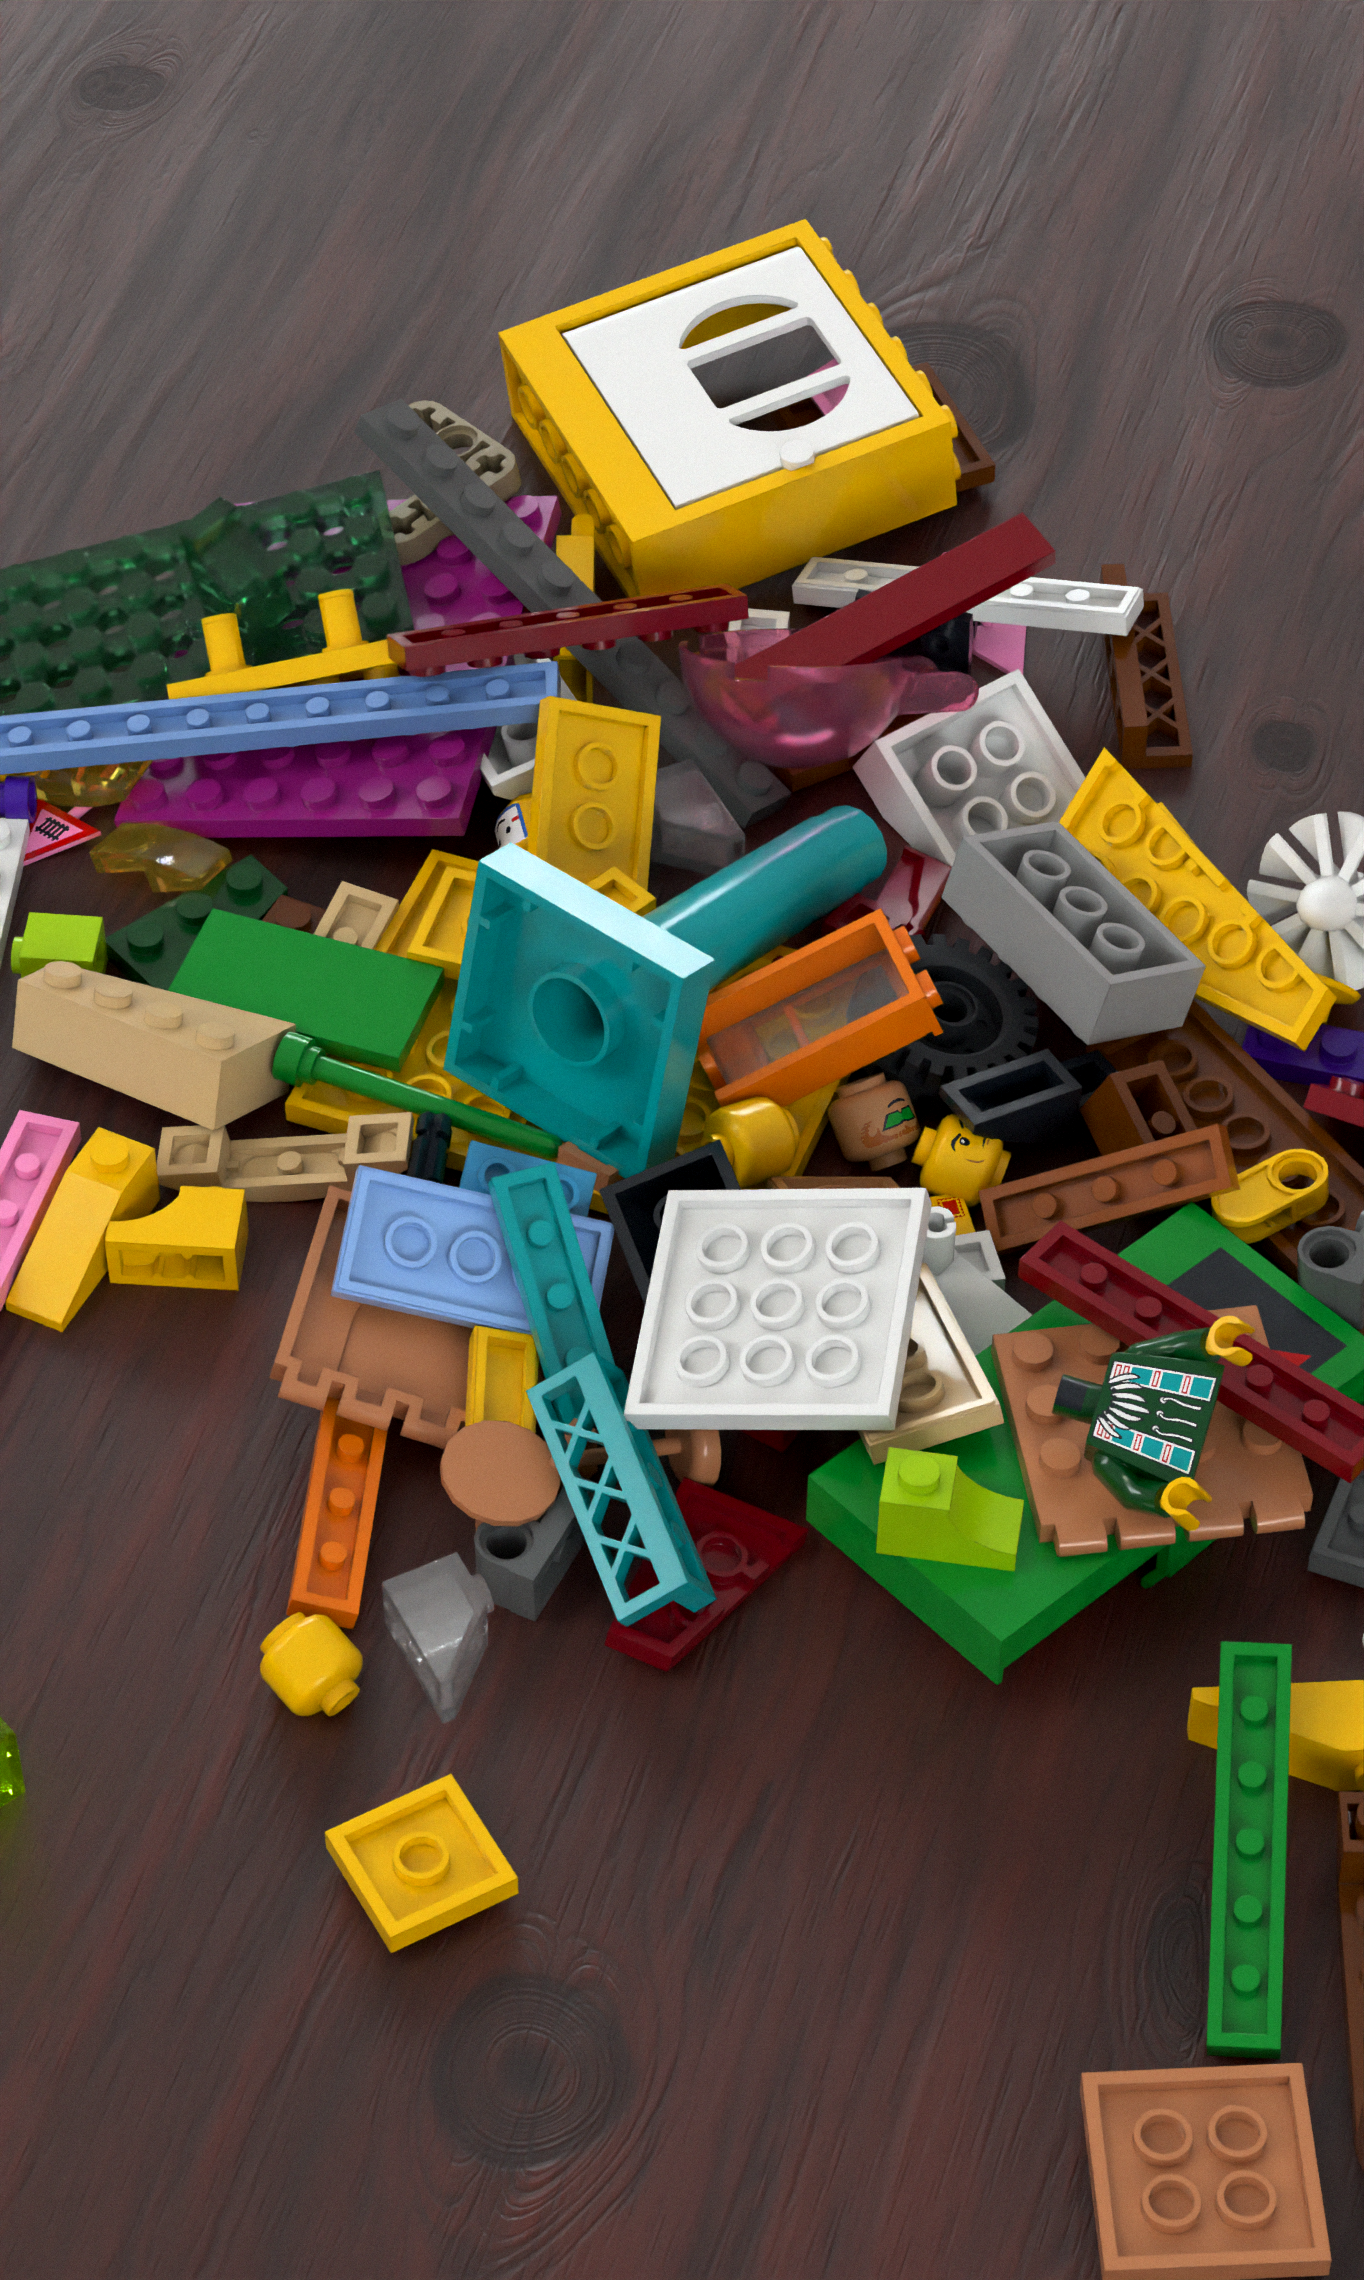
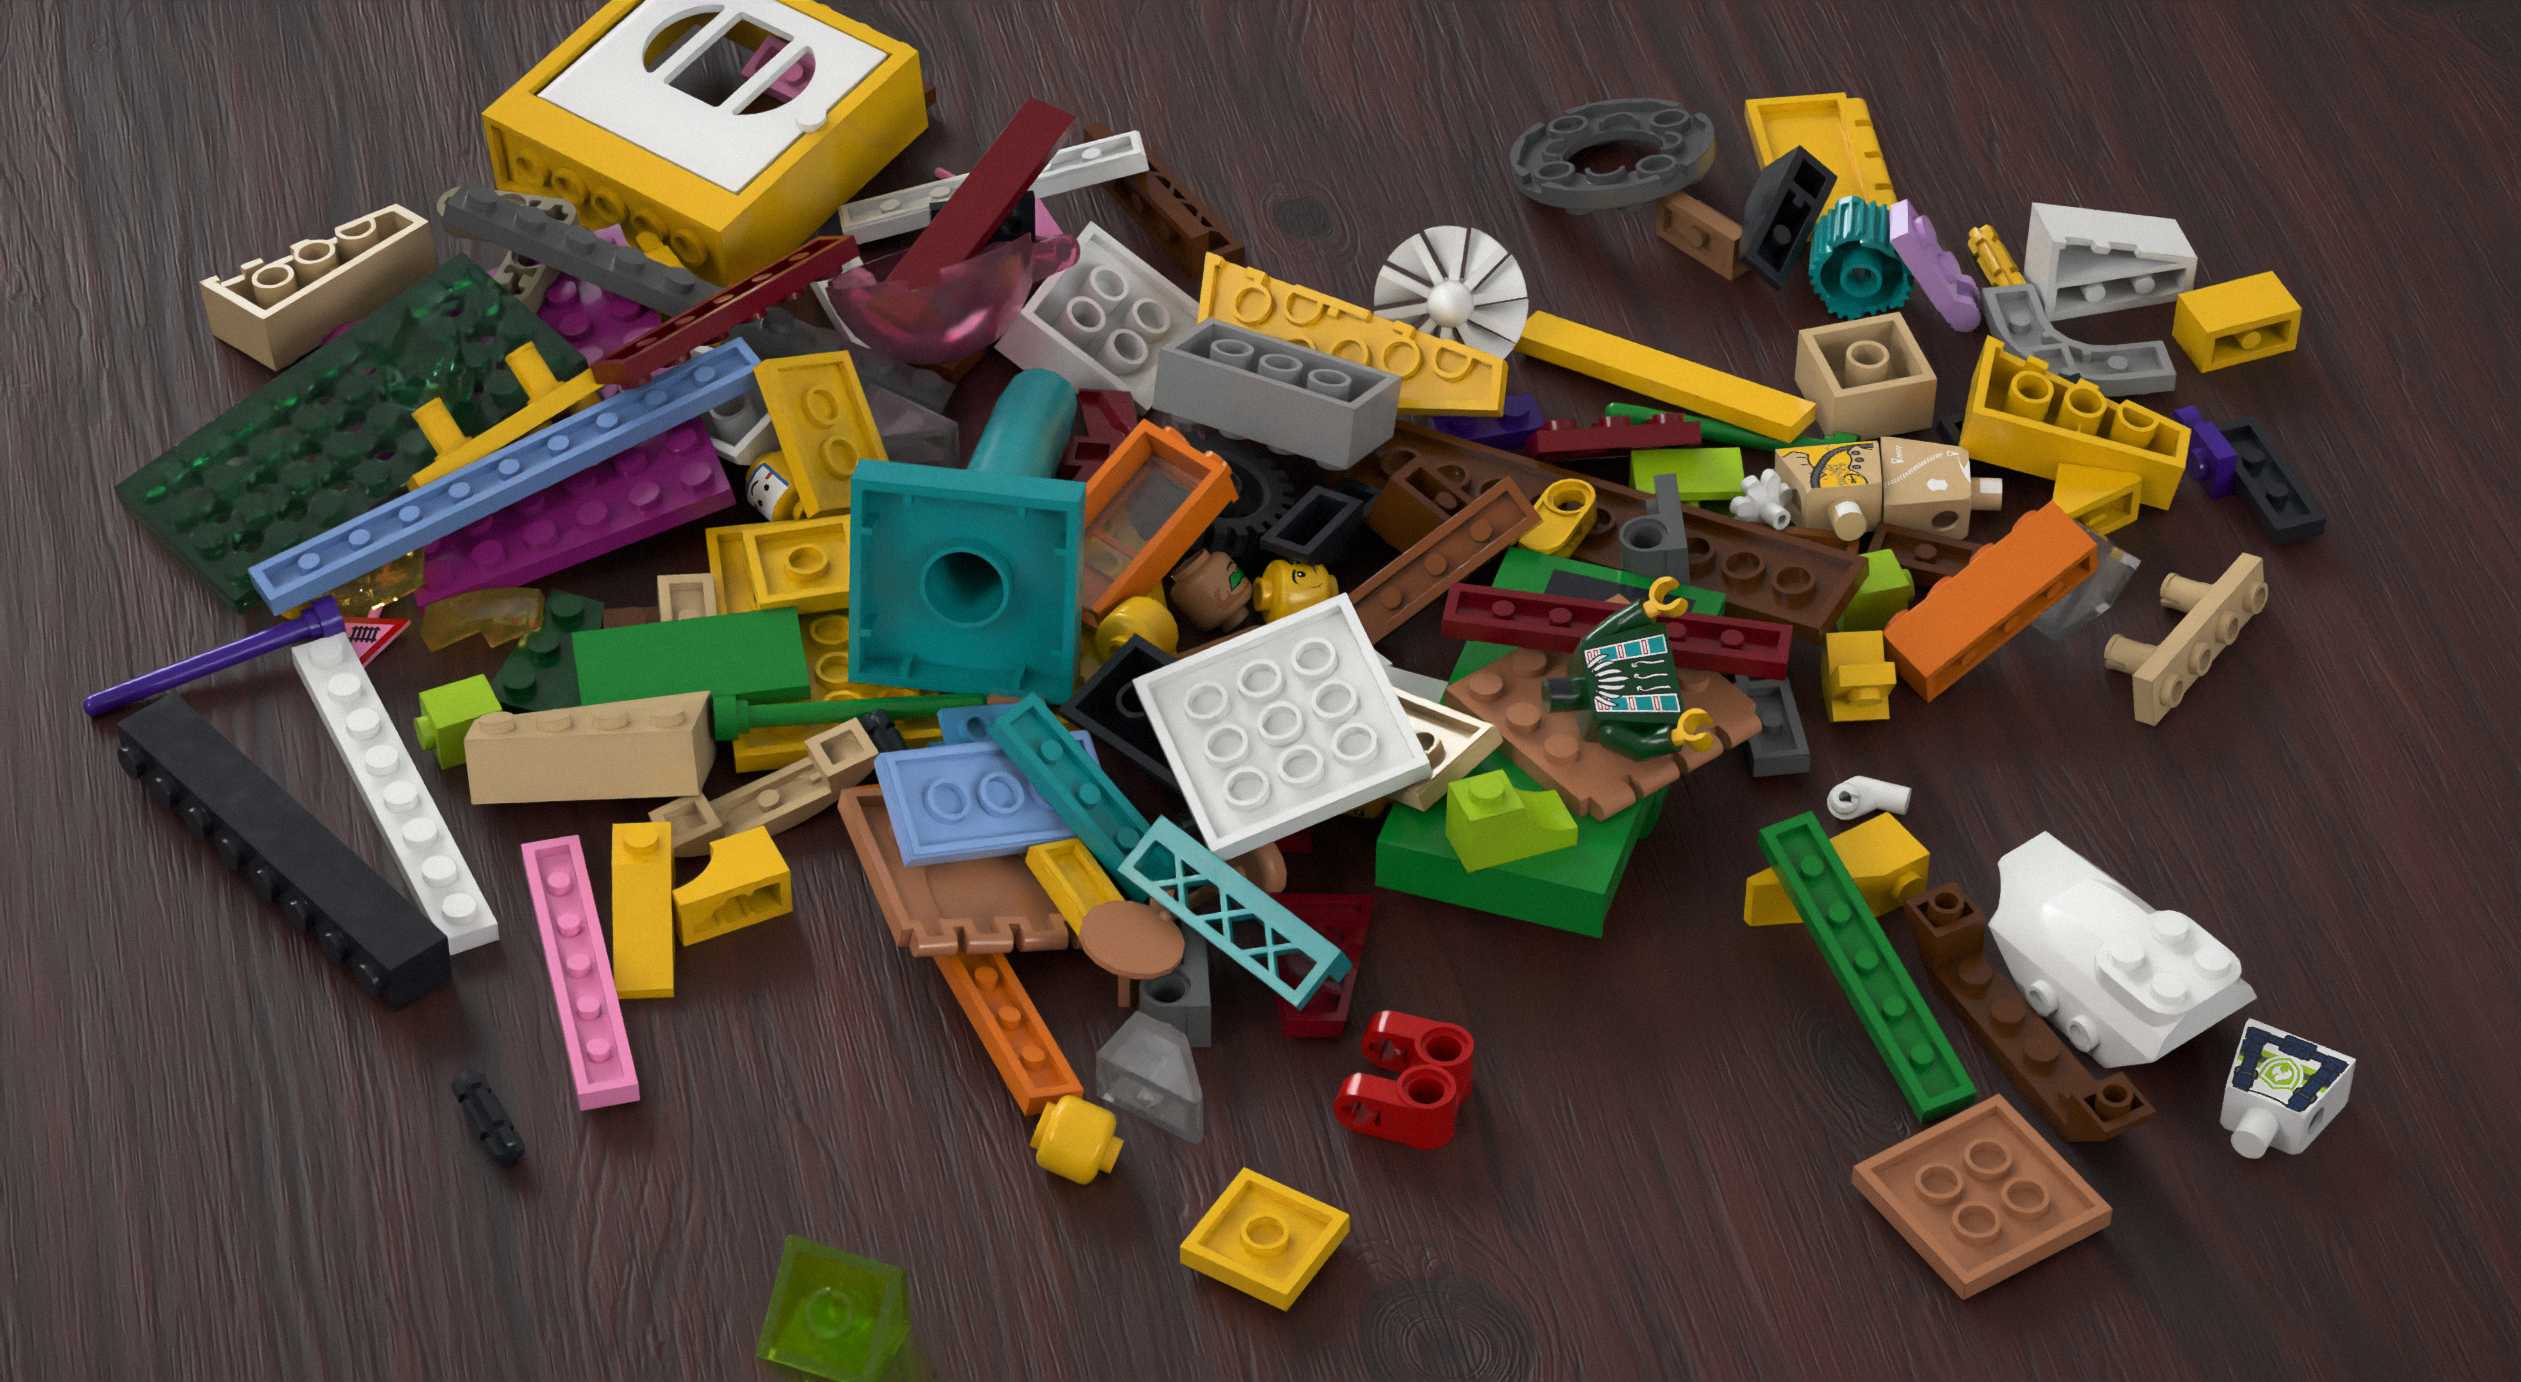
camera: 30 degrees left, 5 degrees down
(251, 452) = (297, 301): none -> tan wedge
(704, 1767) = (1424, 1100): none -> red piece

